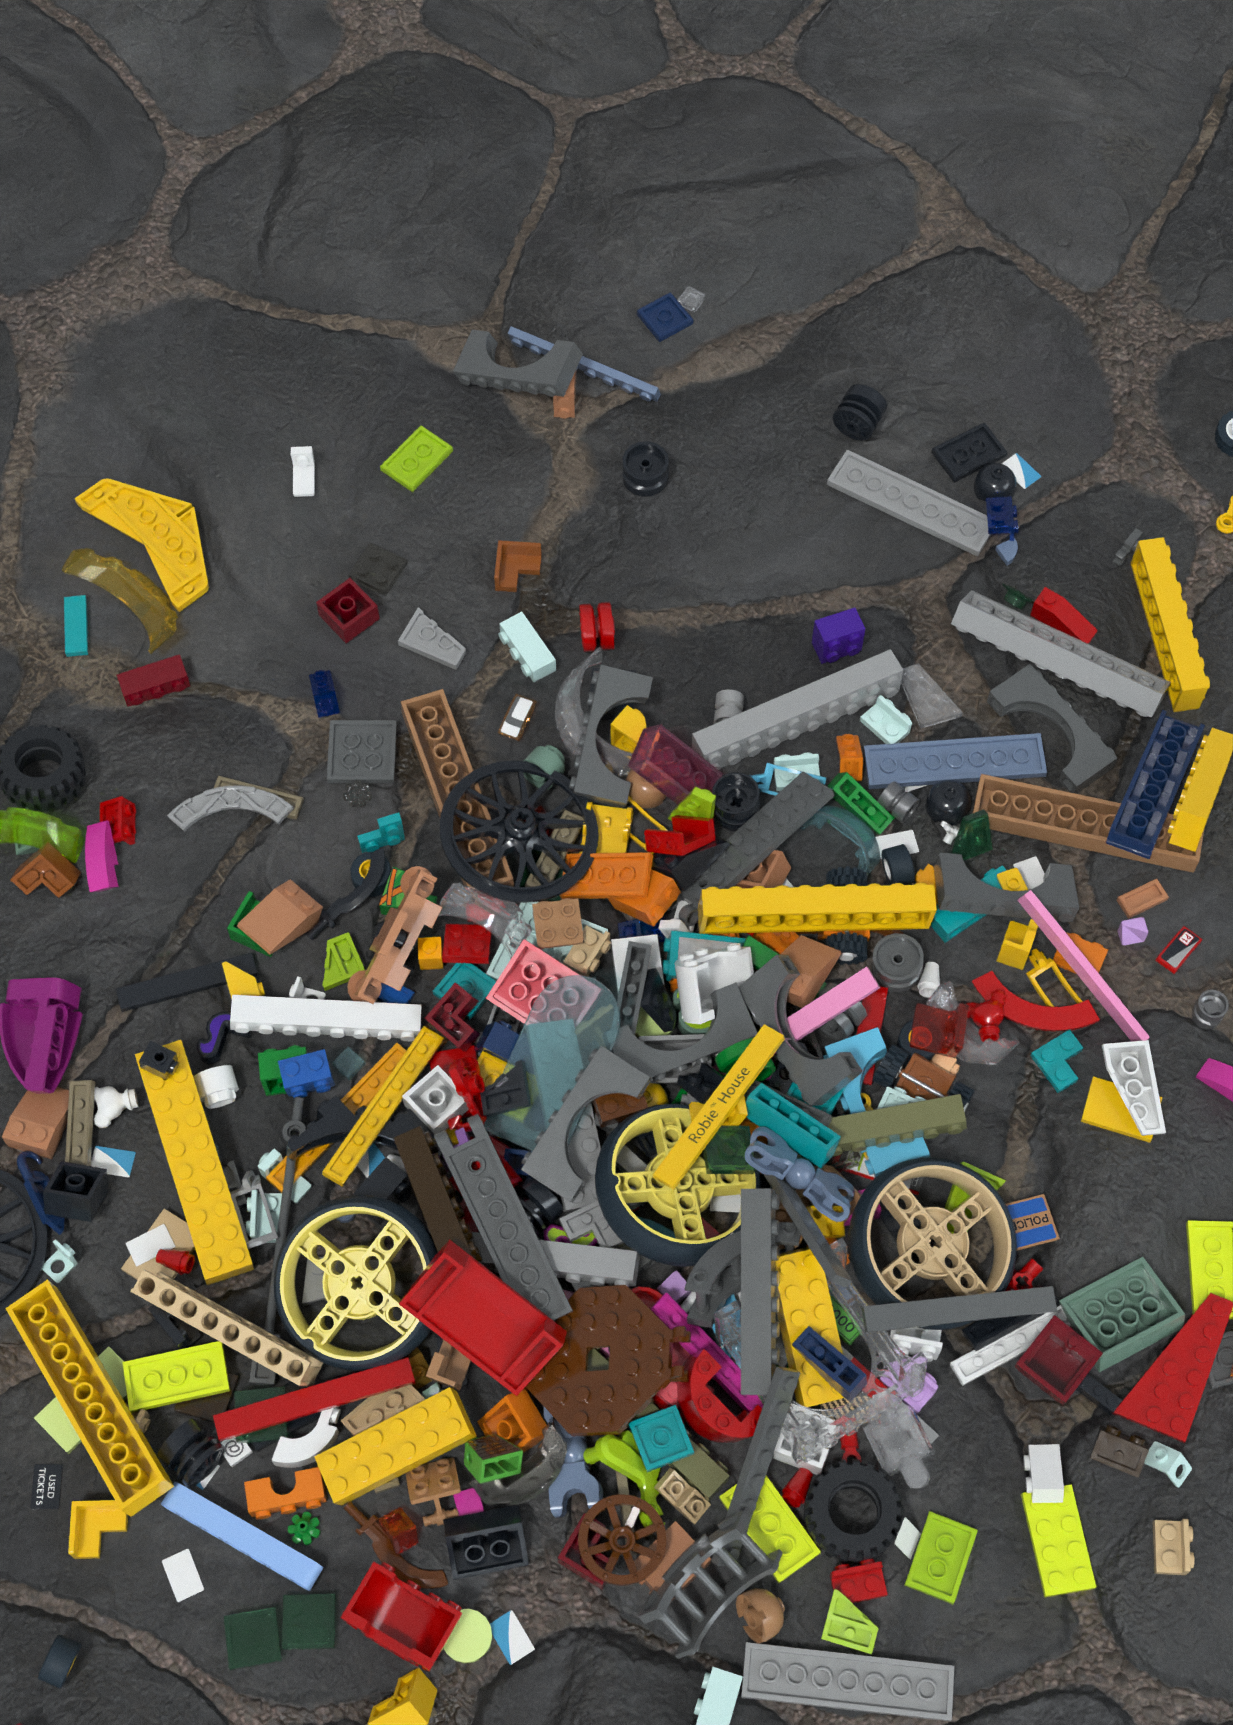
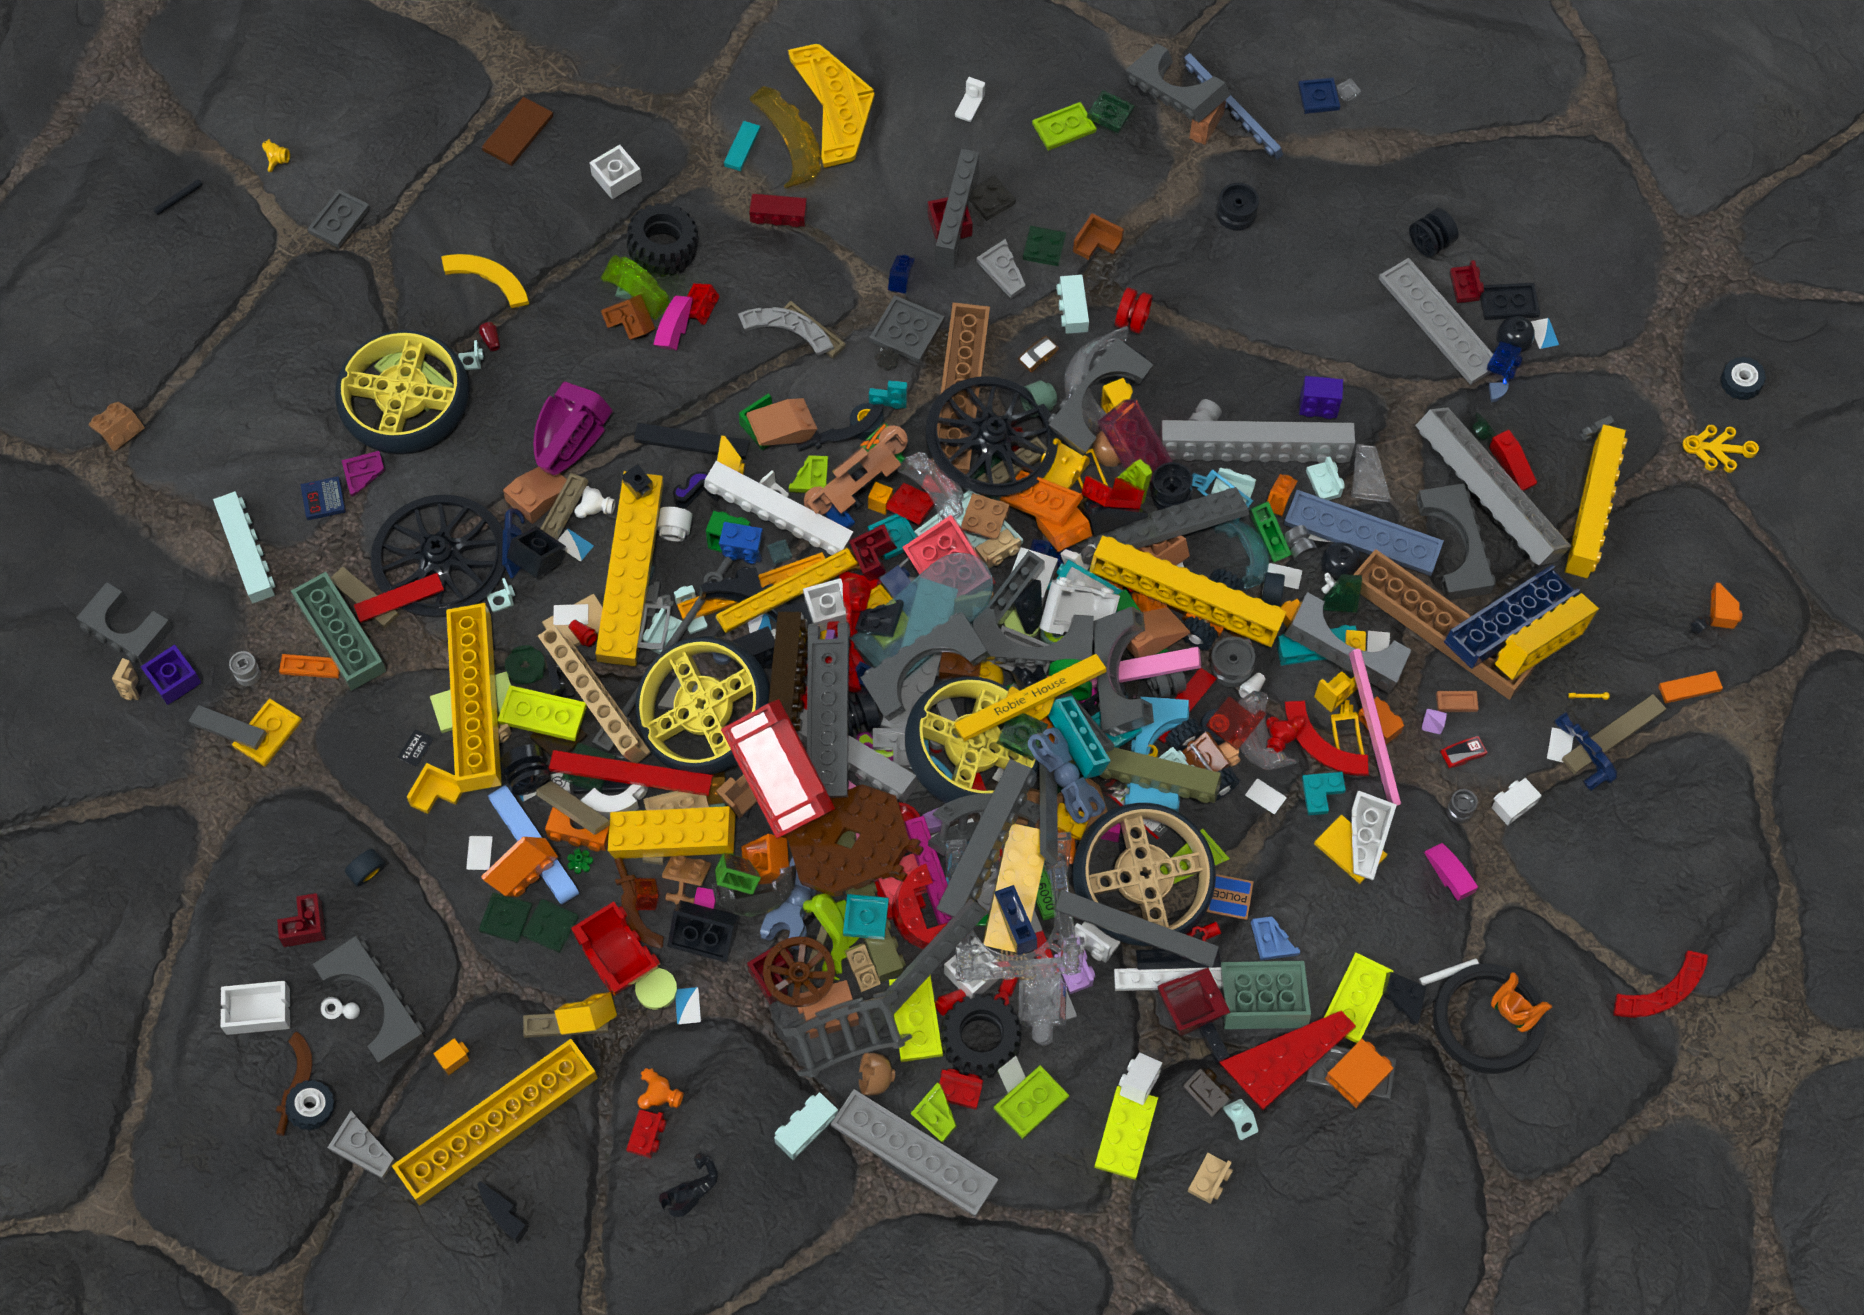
camera: 25 degrees right, 0 degrees up
(127, 1314) = (525, 675): none -> clear green plate
(245, 1572) = (520, 866): none -> orange slope
(268, 1471) = (572, 807): none -> dark tan tile
(353, 596) = (964, 181): none -> dark grey arch
(458, 422) = (1110, 111): none -> clear green plate
(462, 597) = (1044, 246): none -> clear green plate
(918, 450) = (1467, 282): none -> dark red bracket
(1004, 1093) = (1265, 796): none -> white sticker
(1095, 1248) = (1271, 940): none -> medium blue wing

